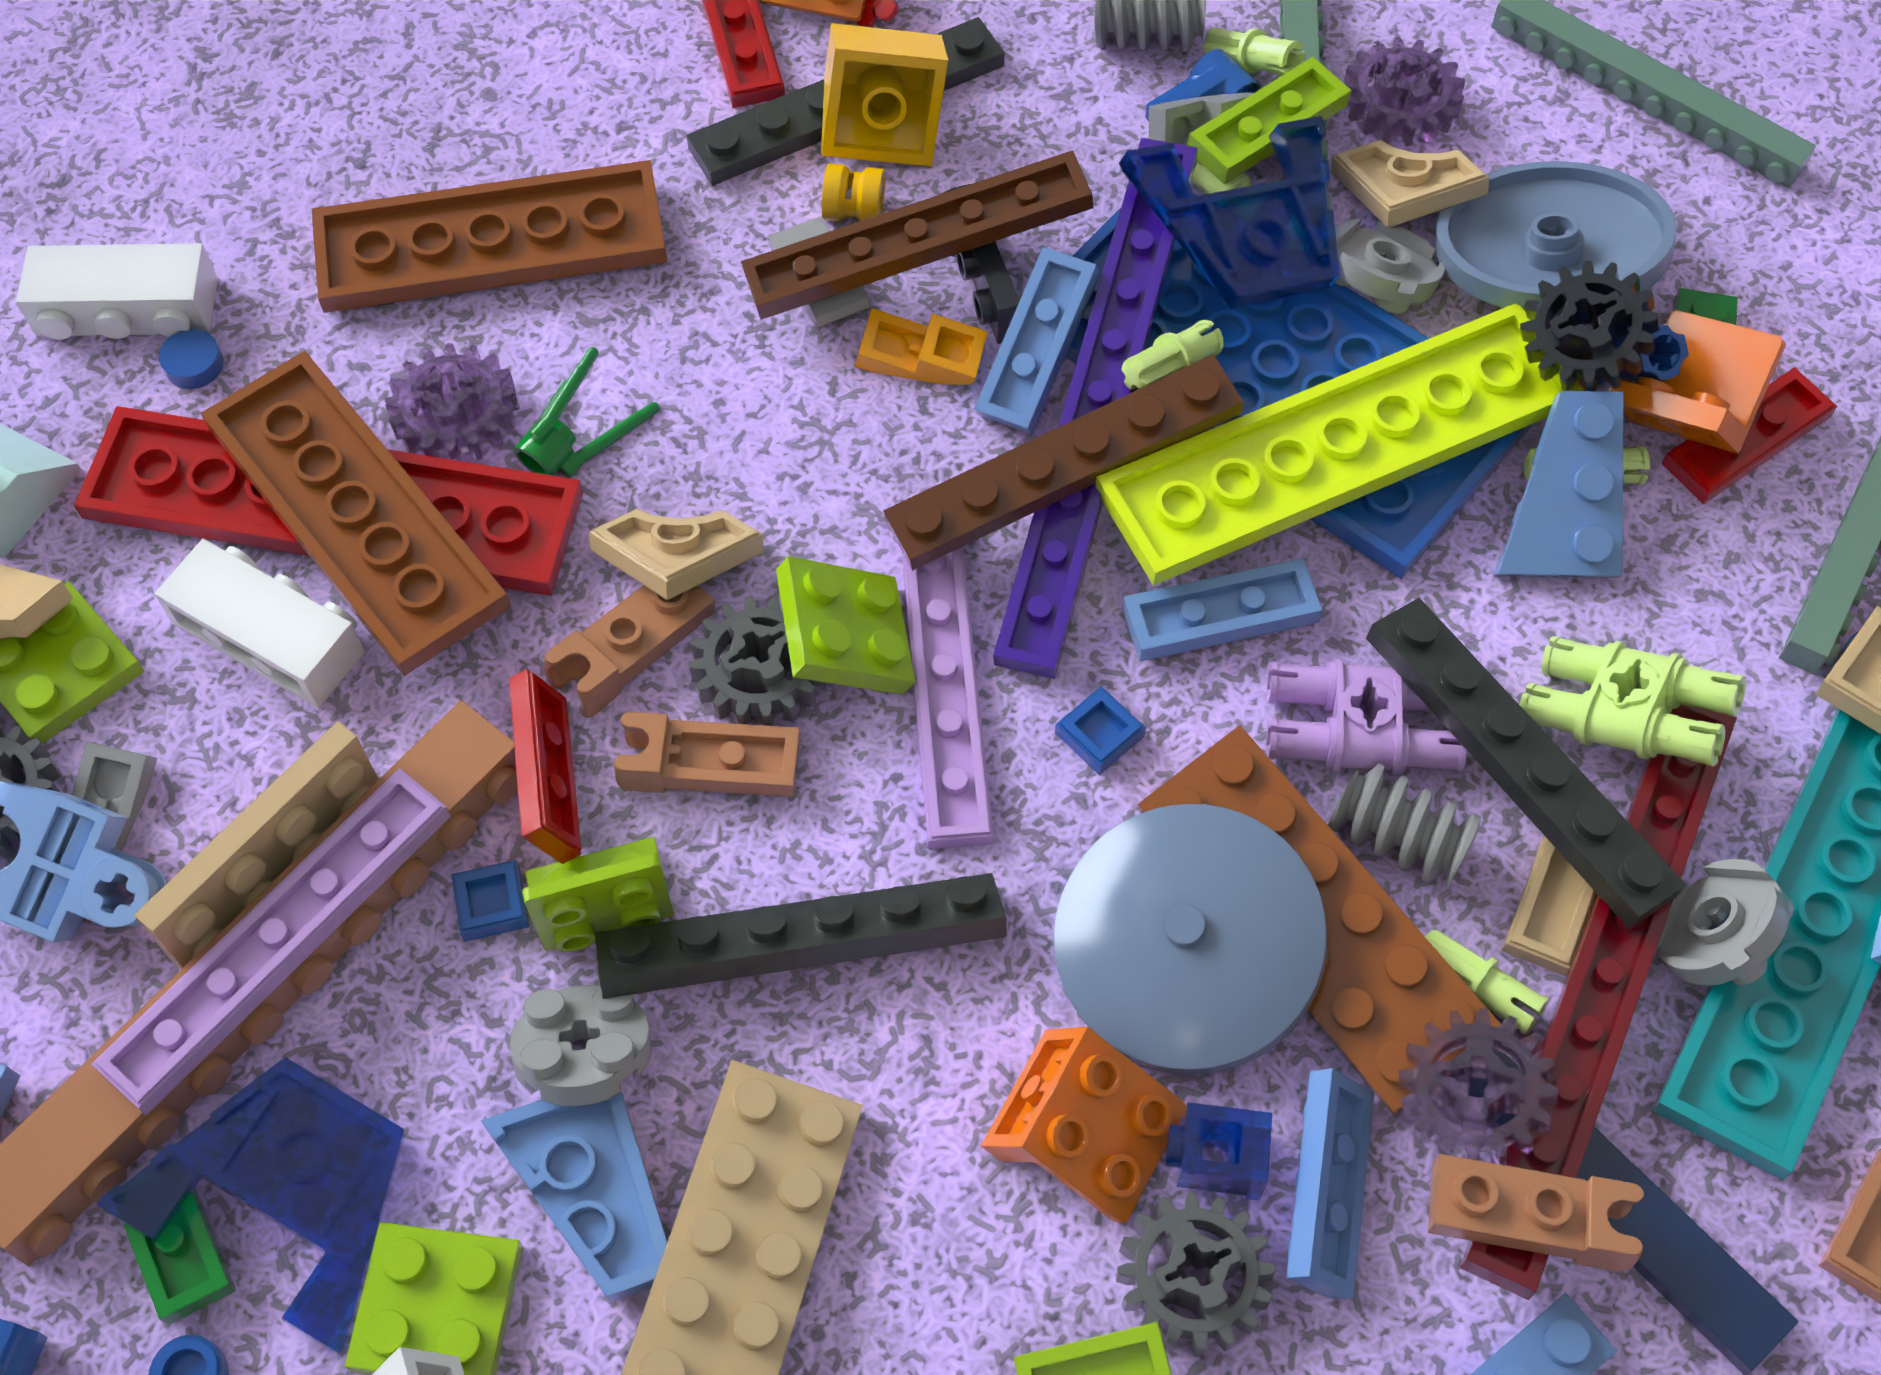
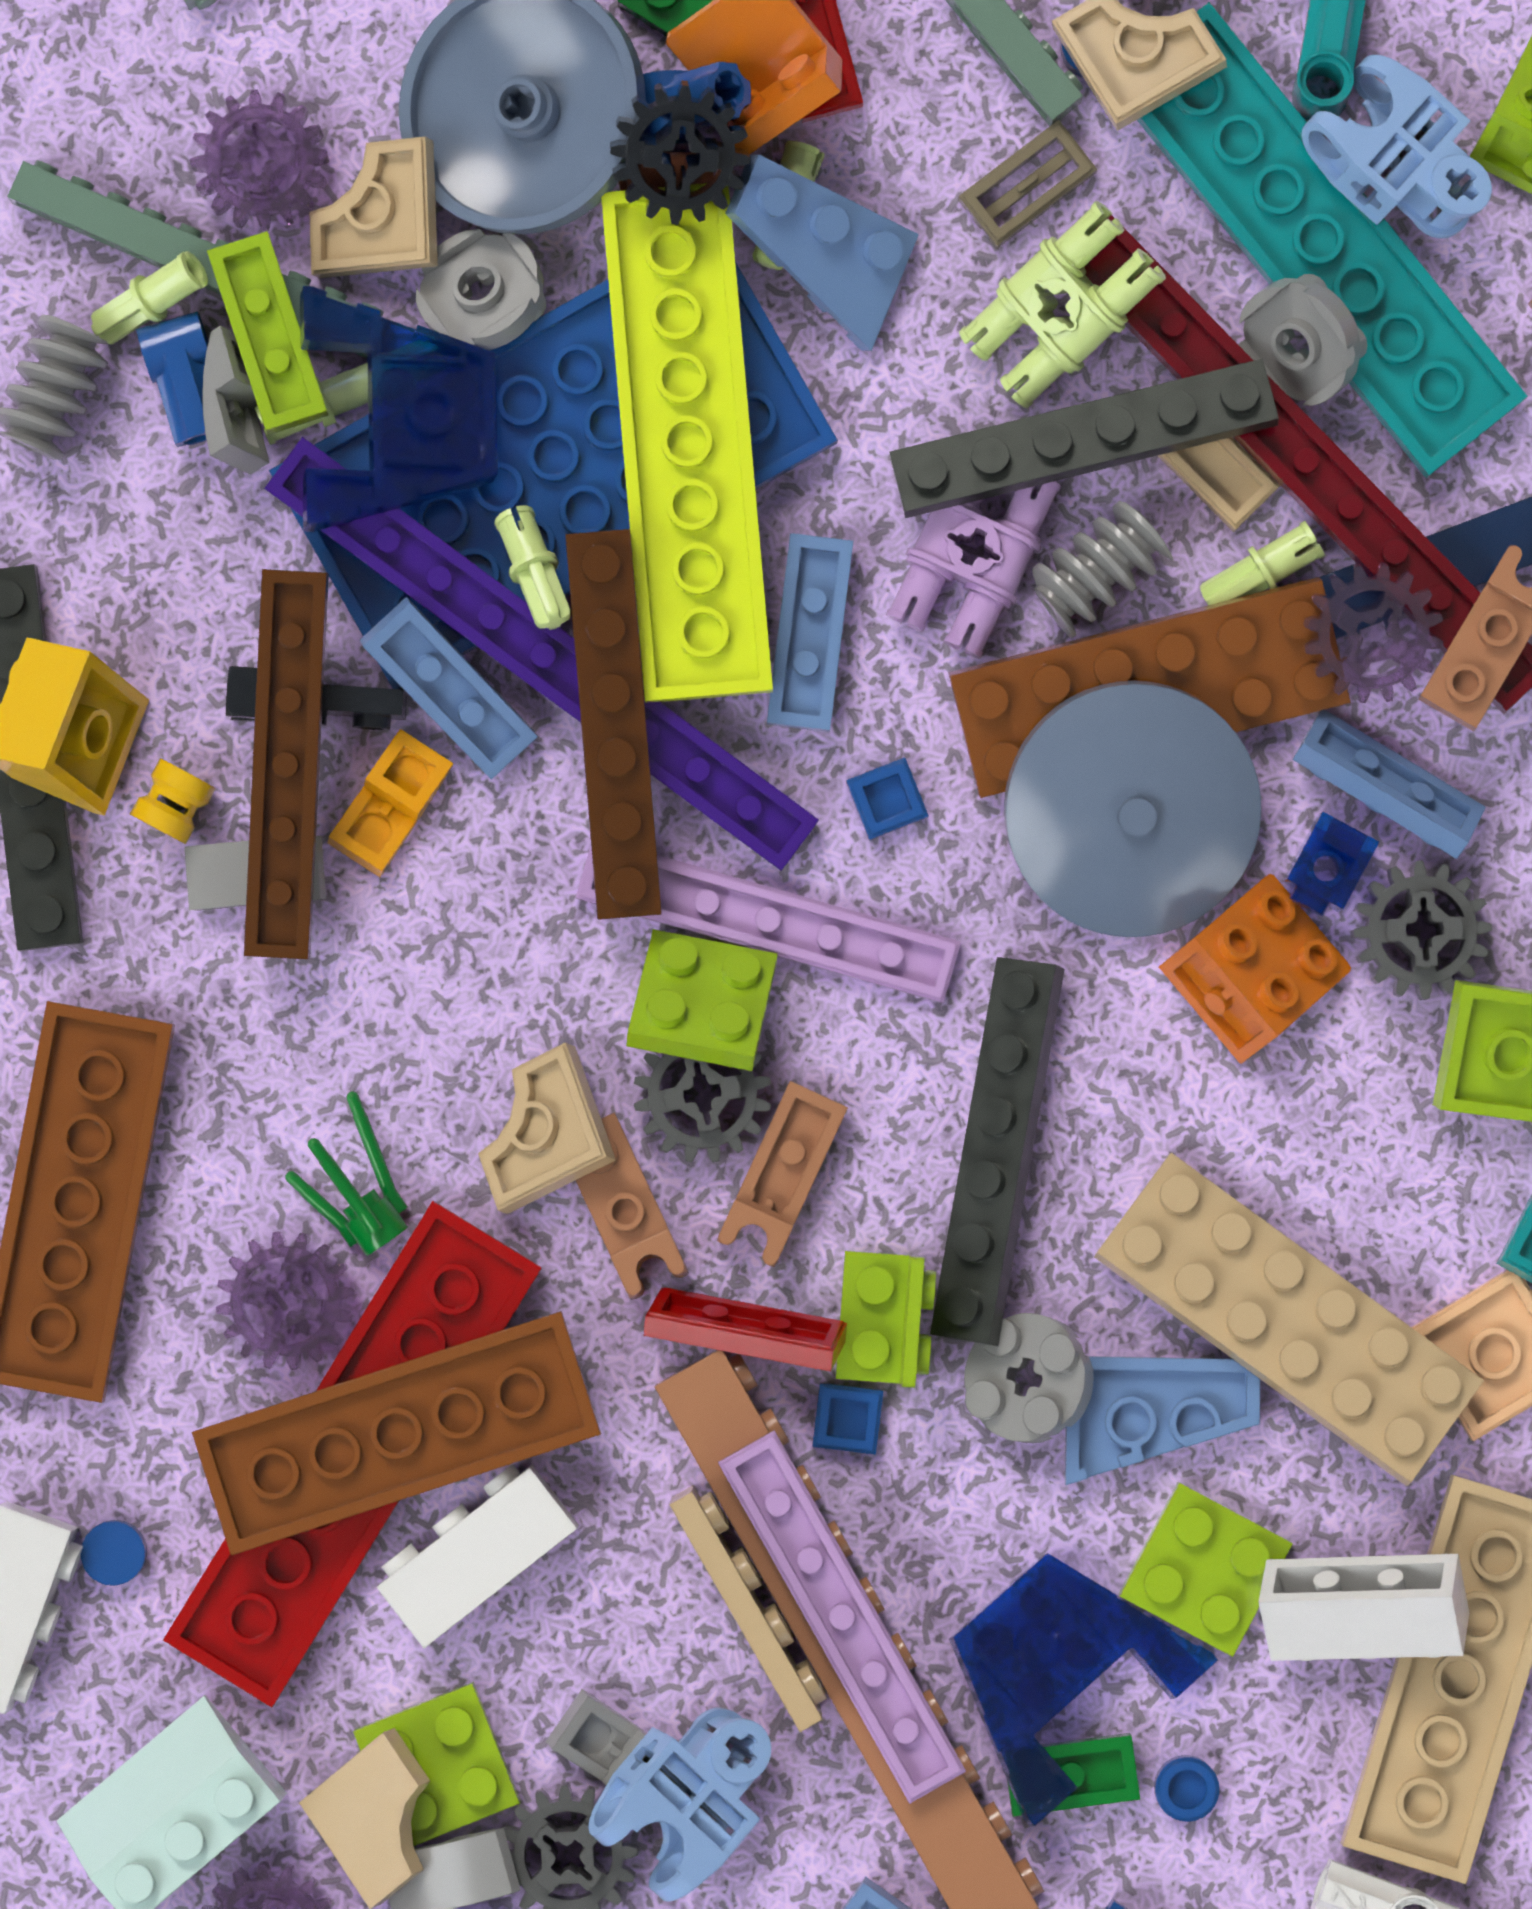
camera: 70 degrees left, 25 degrees up
(1717, 656) = (985, 217): none -> dark tan tile

